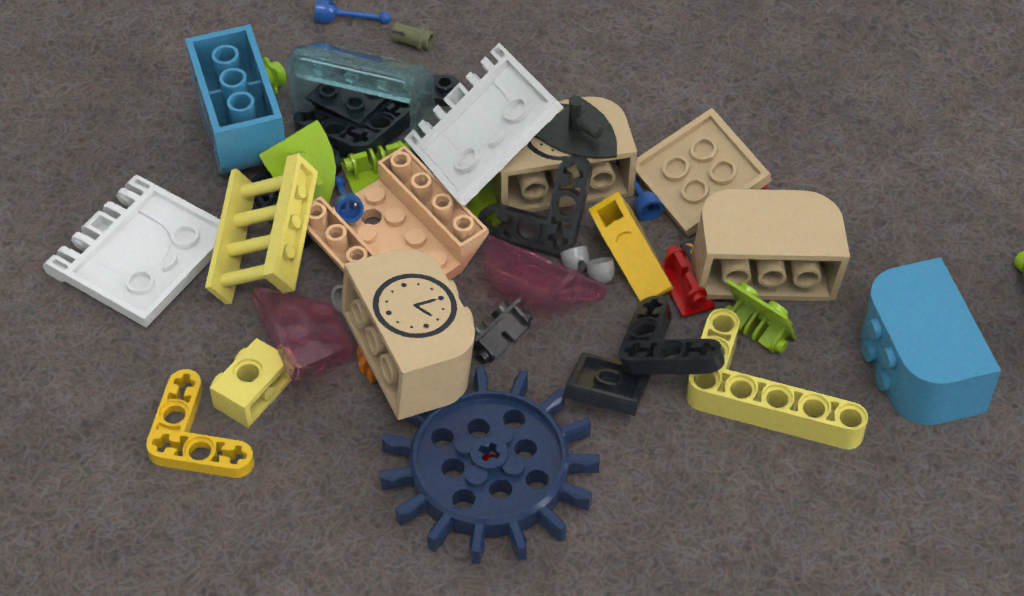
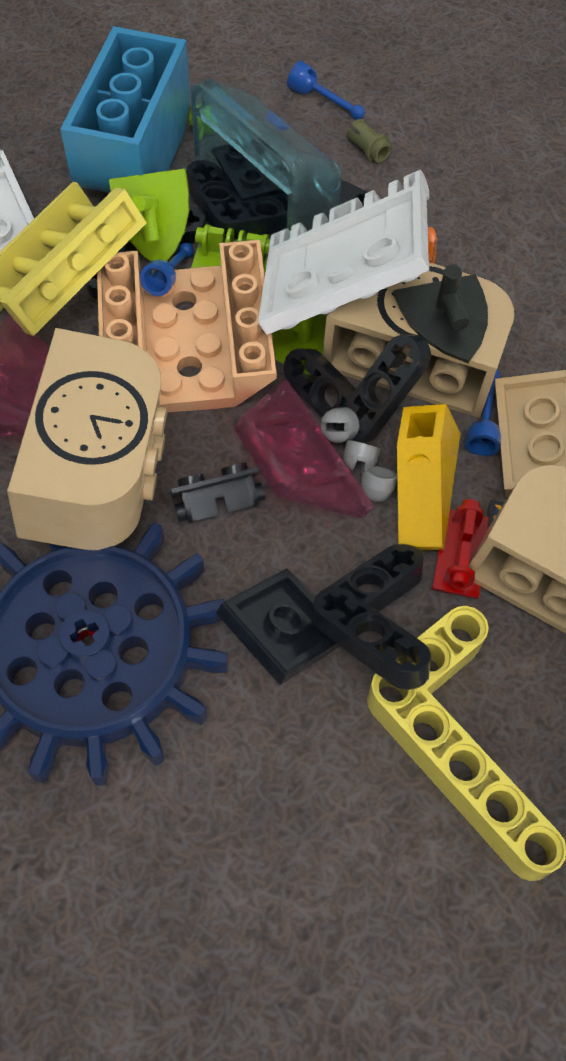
camera: 30 degrees right, 10 degrees up
(547, 237) = (339, 415): none -> light grey hinge
(751, 310) = (508, 631): lime hinge -> none

